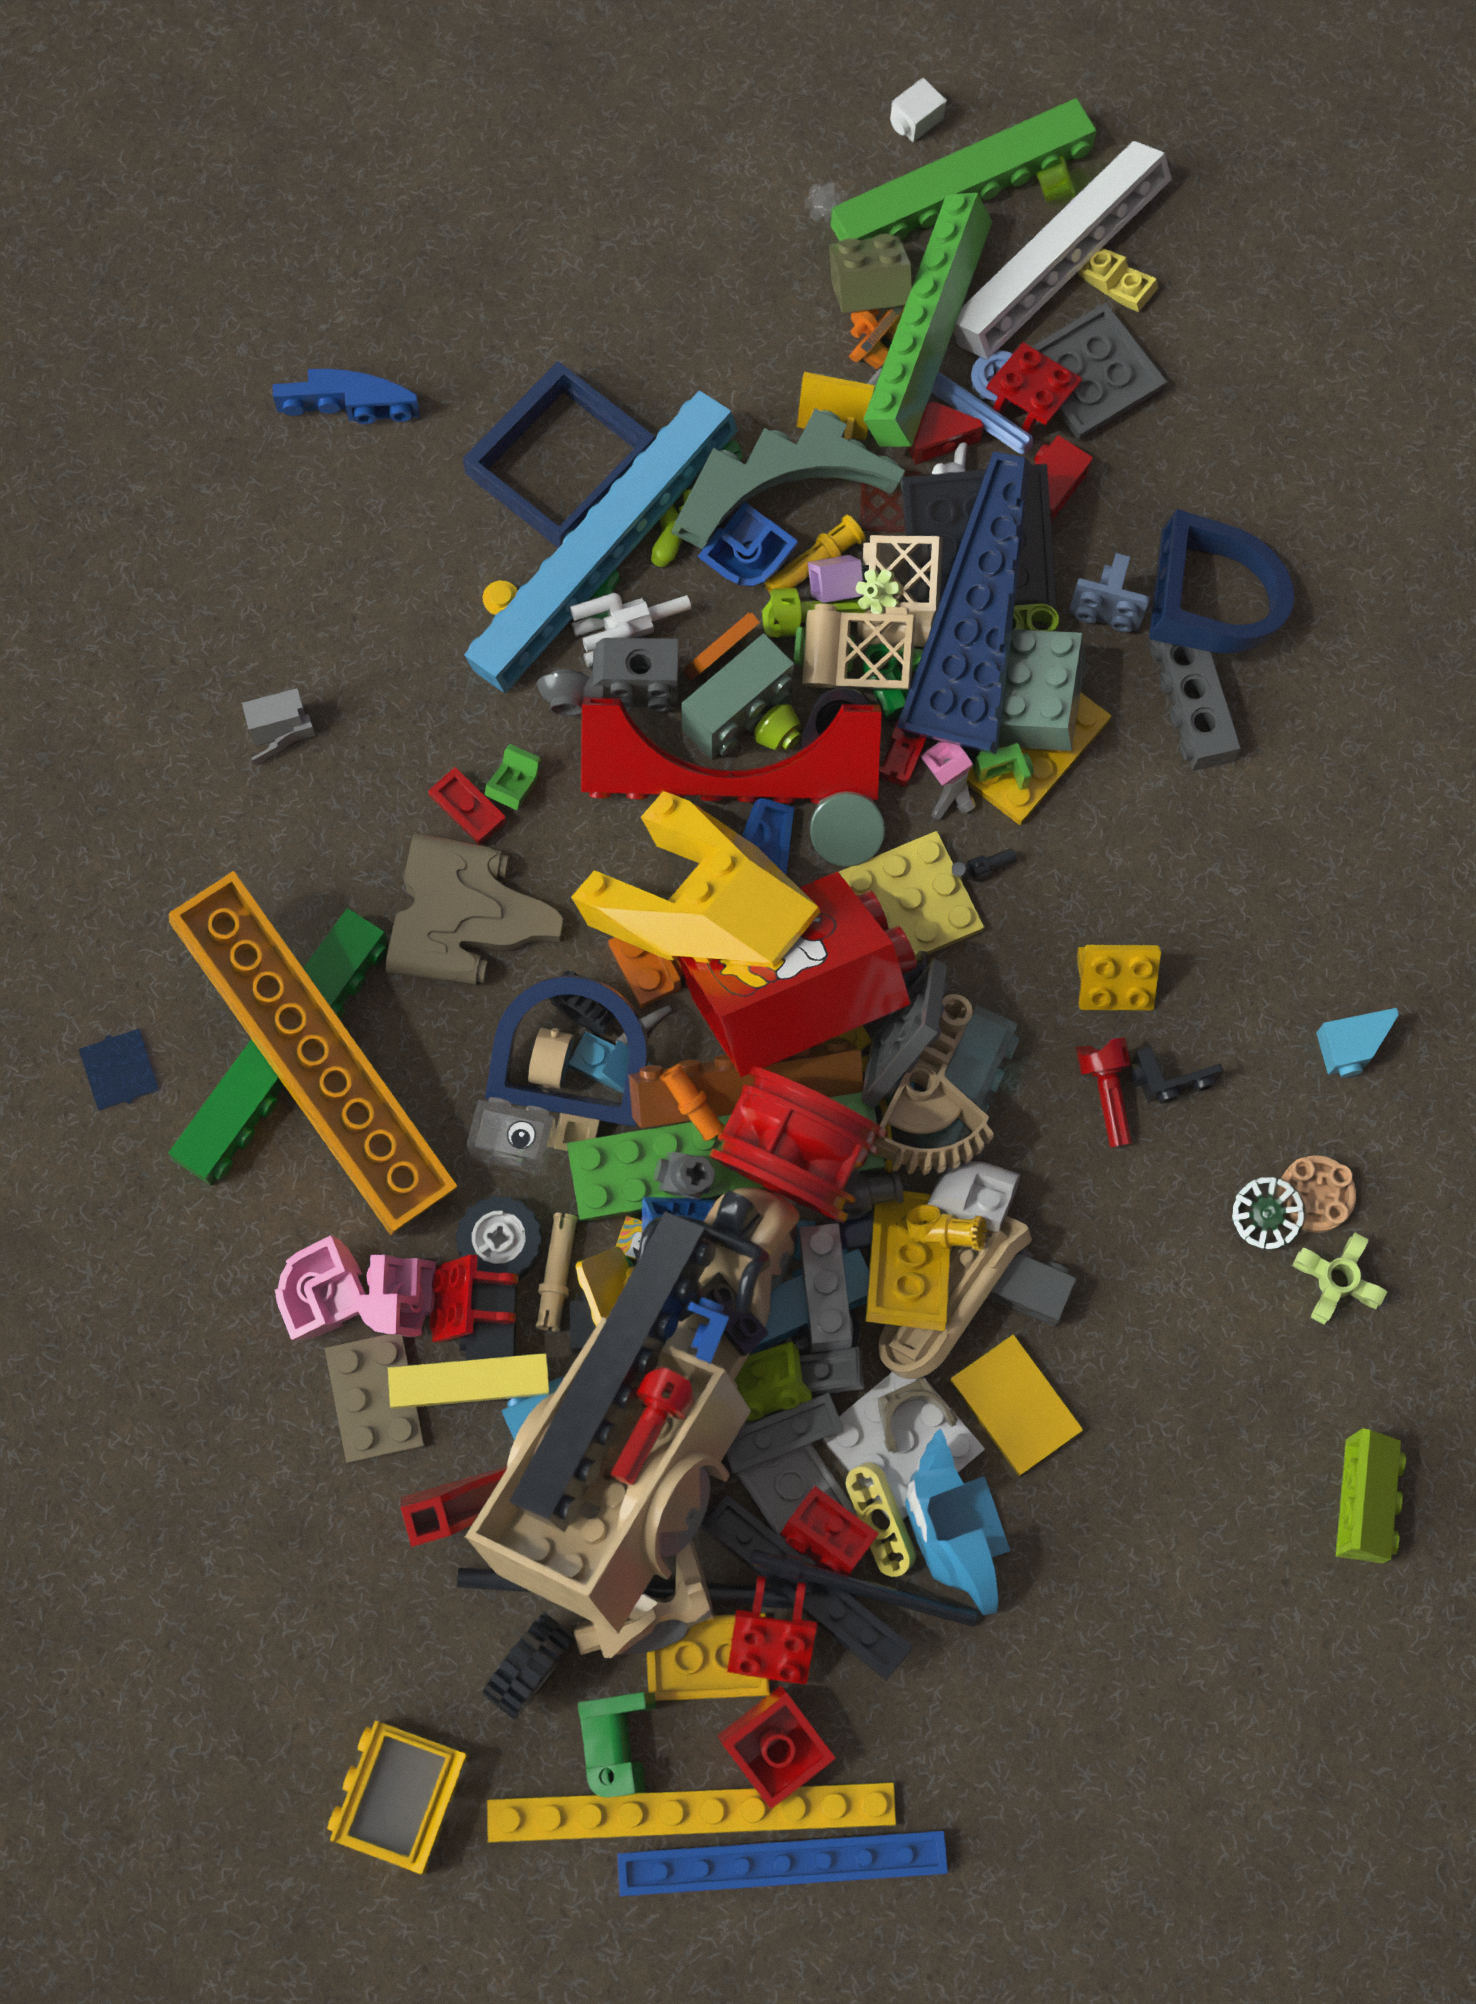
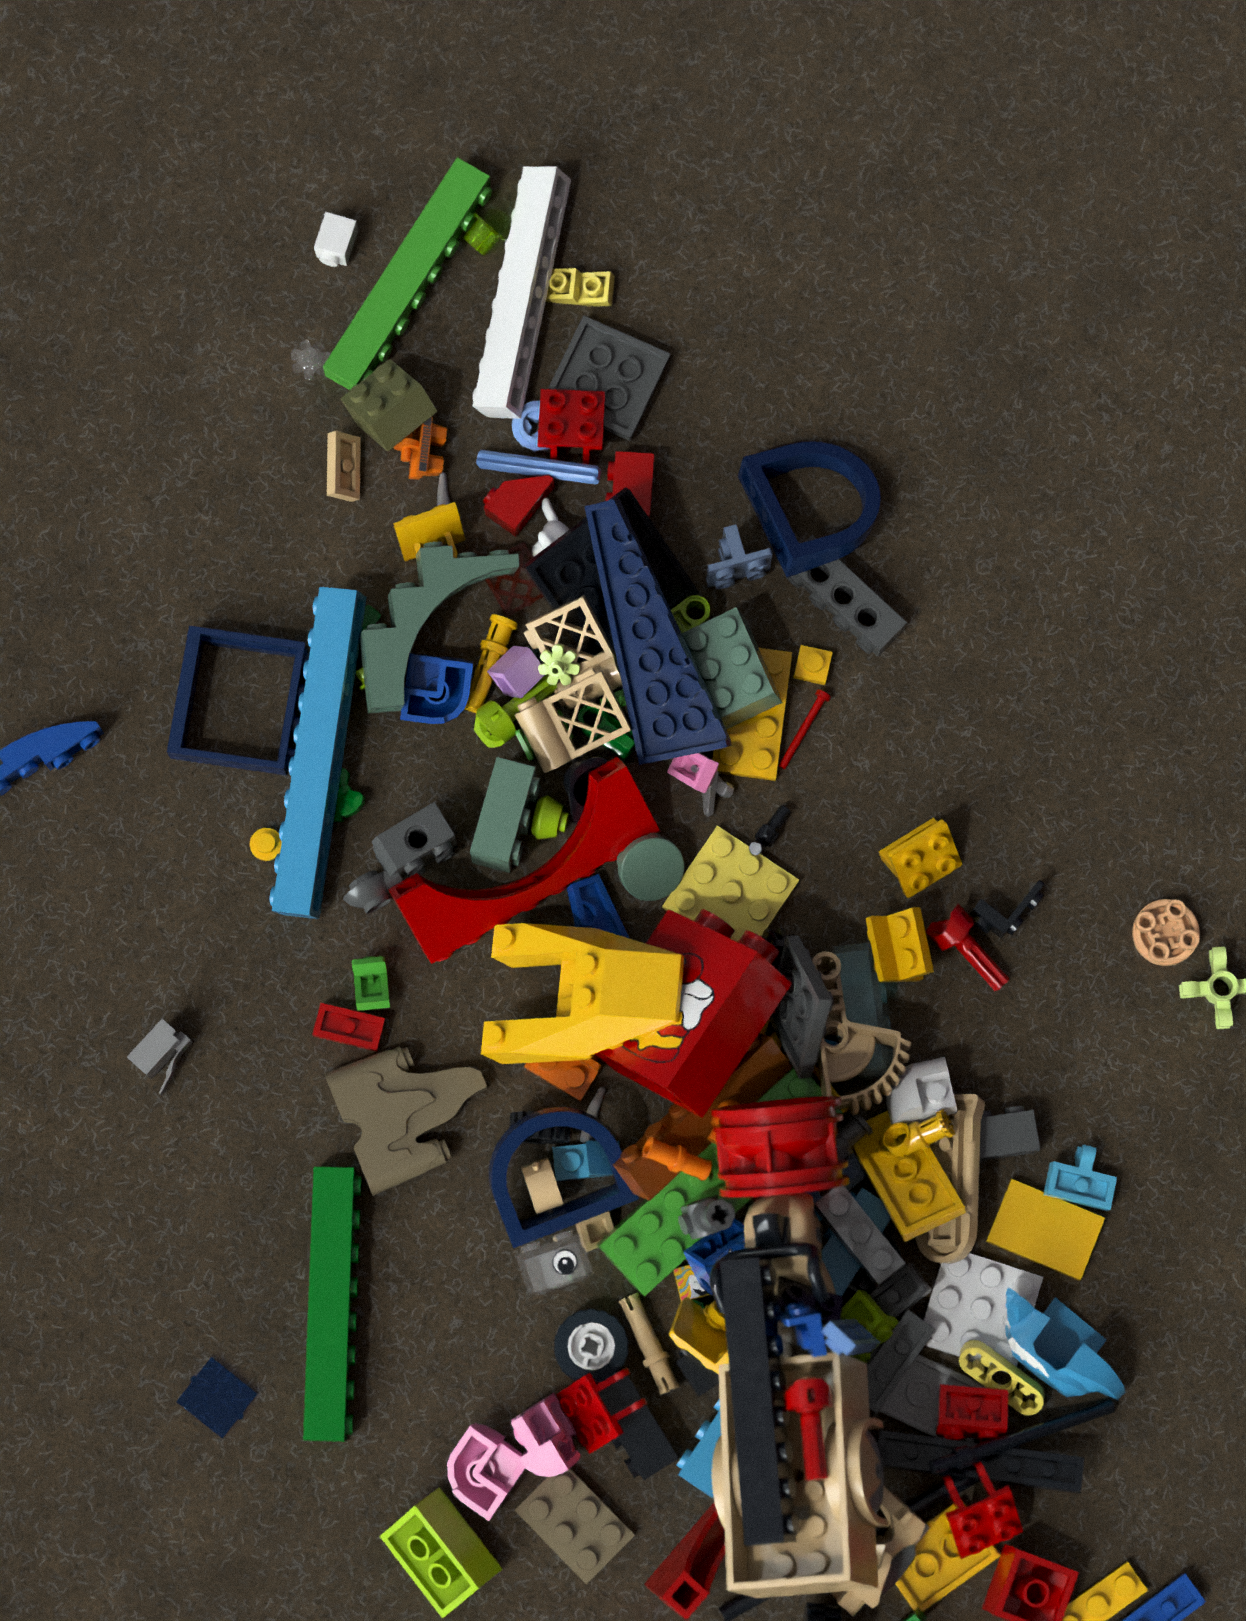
camera: 30 degrees left, 5 degrees up
(228, 1342) = (440, 1552): none -> lime slope
(311, 1052) = (365, 1297): light orange brick -> none
(468, 1381) = (641, 1469): light yellow tile -> none
(623, 620) = (375, 806): white plant -> none
(667, 544) = (368, 724): lime arm -> none
(720, 646) = (465, 782): orange tile -> none
(746, 1367) = (849, 1337): none -> medium blue plate
(794, 308) = (343, 466): none -> tan plate
(901, 758) = (654, 783): red piece -> none
(914, 1391) = (957, 1286): dark tan helmet -> none
(928, 320) = (459, 417): bright green brick -> none
(1005, 761) = (739, 739): bright green bracket -> none
(1041, 1043) = (899, 946): none -> yellow bracket
(1079, 1379) = (1079, 1182): none -> medium azure plate
(1114, 774) = (821, 697): none -> red piece
(1124, 740) = (812, 665): none -> yellow plate
(1269, 1213) = (1141, 970): wheel -> none
(1353, 1041) = (1125, 799): medium azure slope -> none

